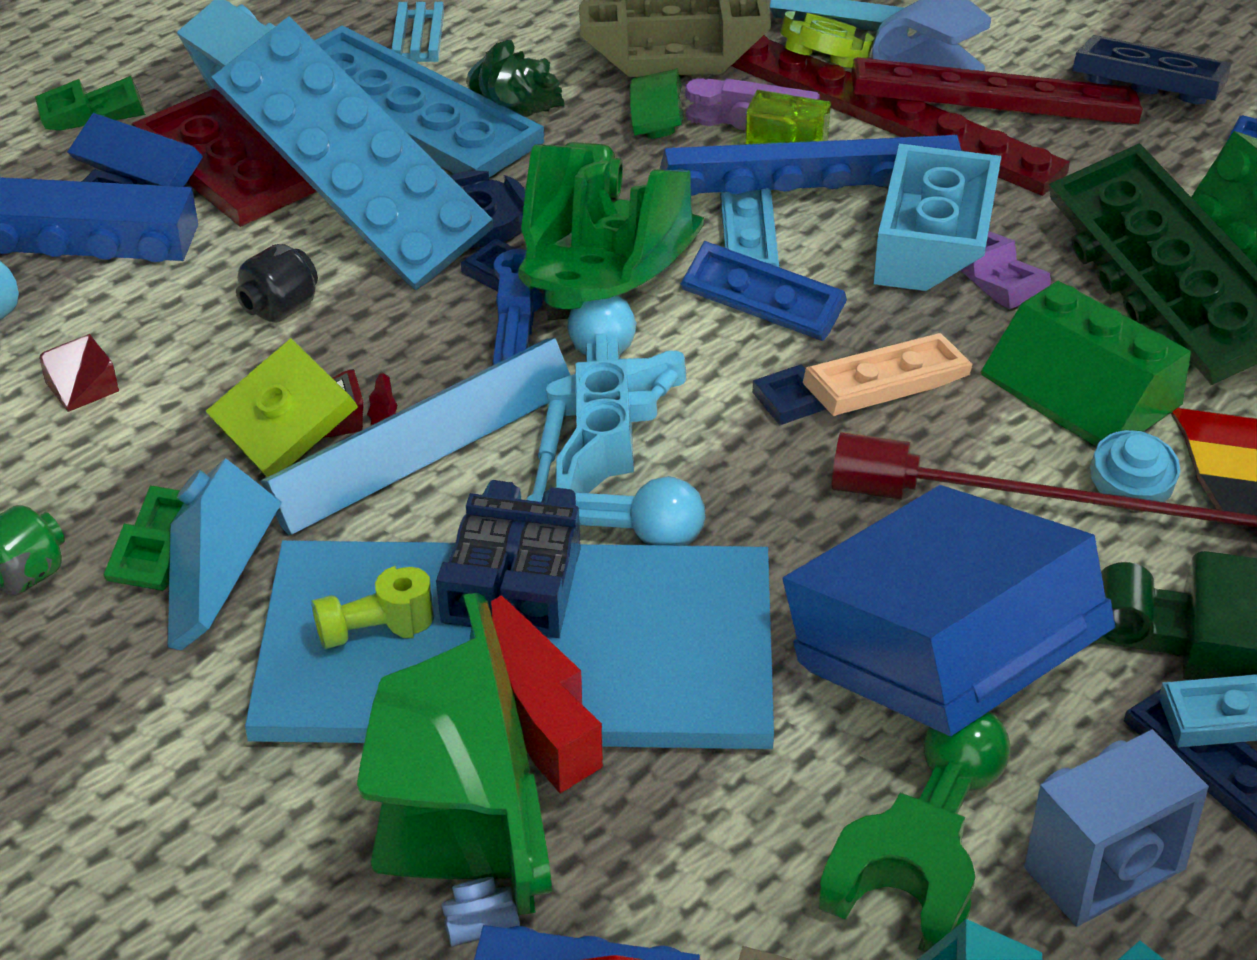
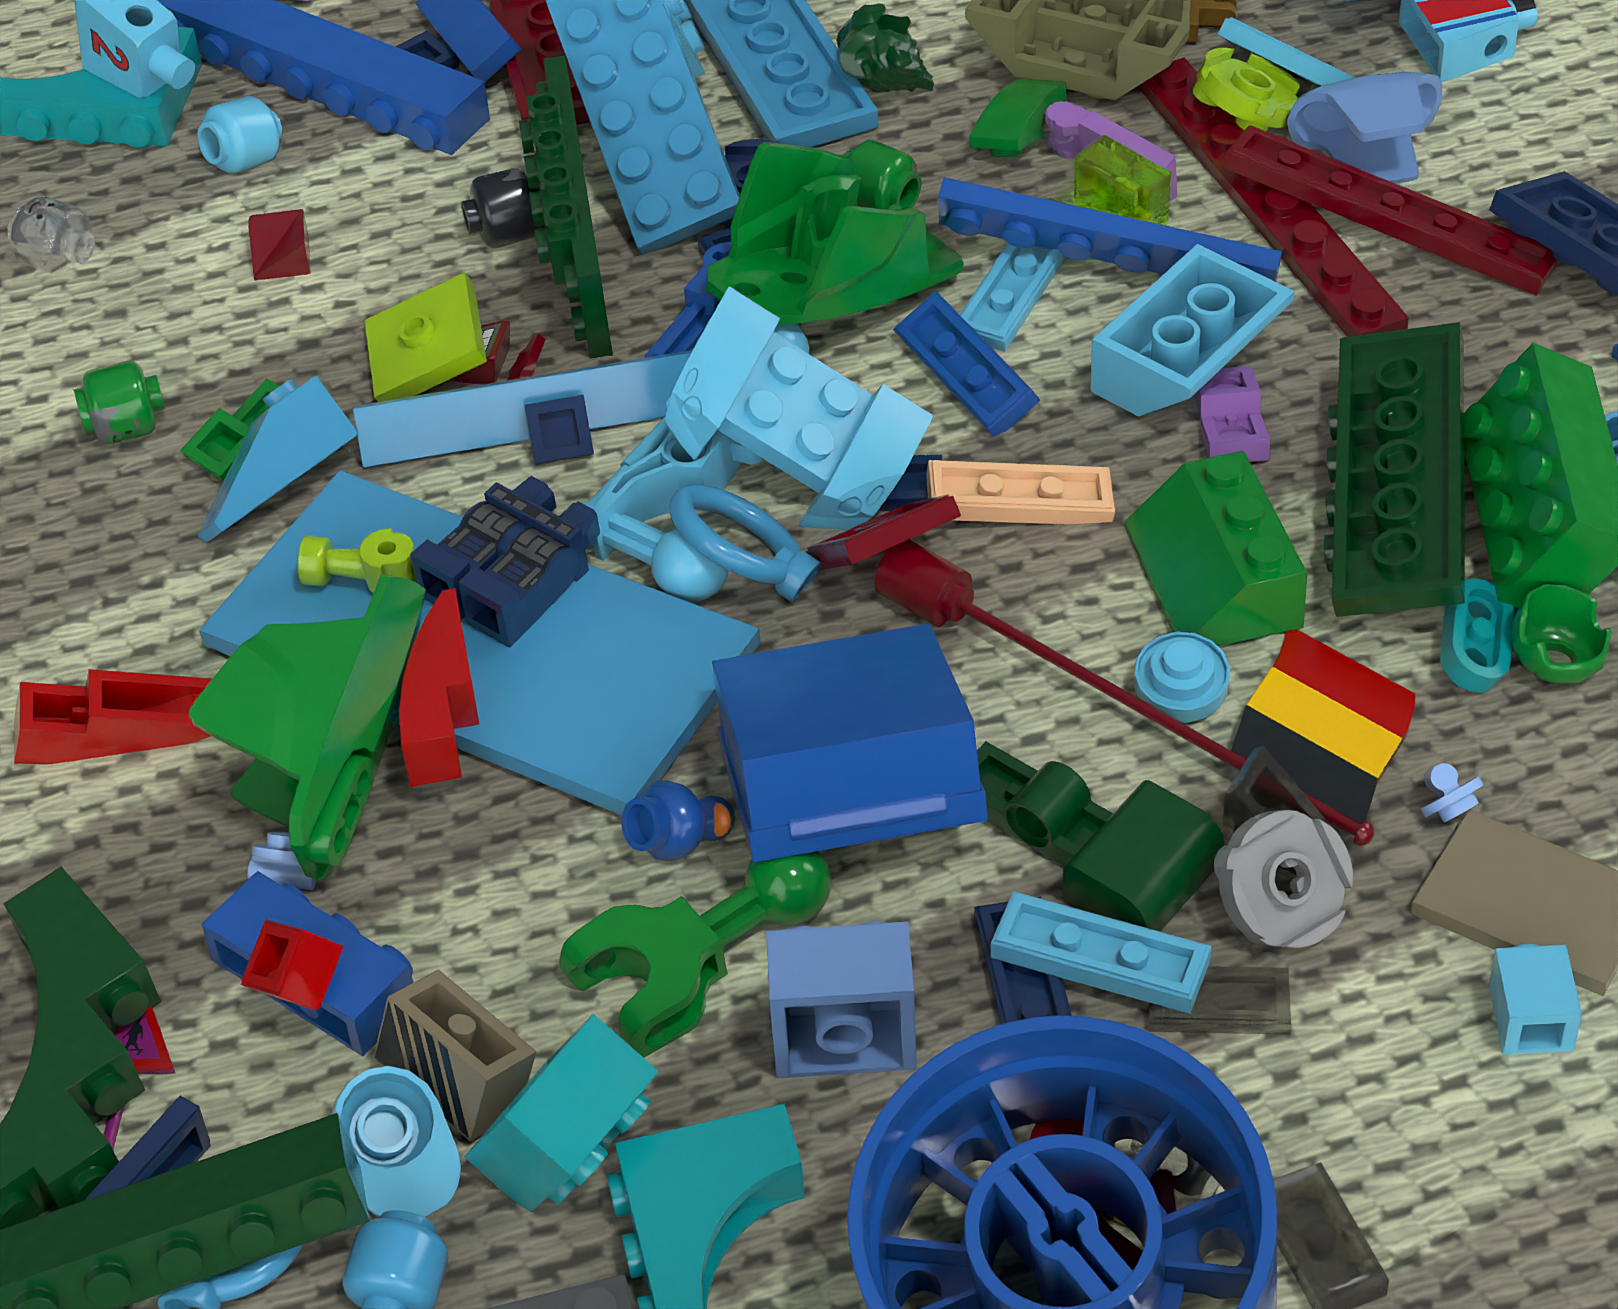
camera: 30 degrees right, 5 degrees up
(203, 840) = (104, 717): none -> red slope
(355, 261) = (564, 204): none -> dark green plate
(459, 444) = (559, 429): none -> dark blue tile
(689, 363) = (794, 414): none -> medium azure piece
(706, 479) = (788, 570): none -> dark azure piece
(817, 434) = (884, 531): none -> dark red tile
(823, 733) = (672, 820): none -> blue animal

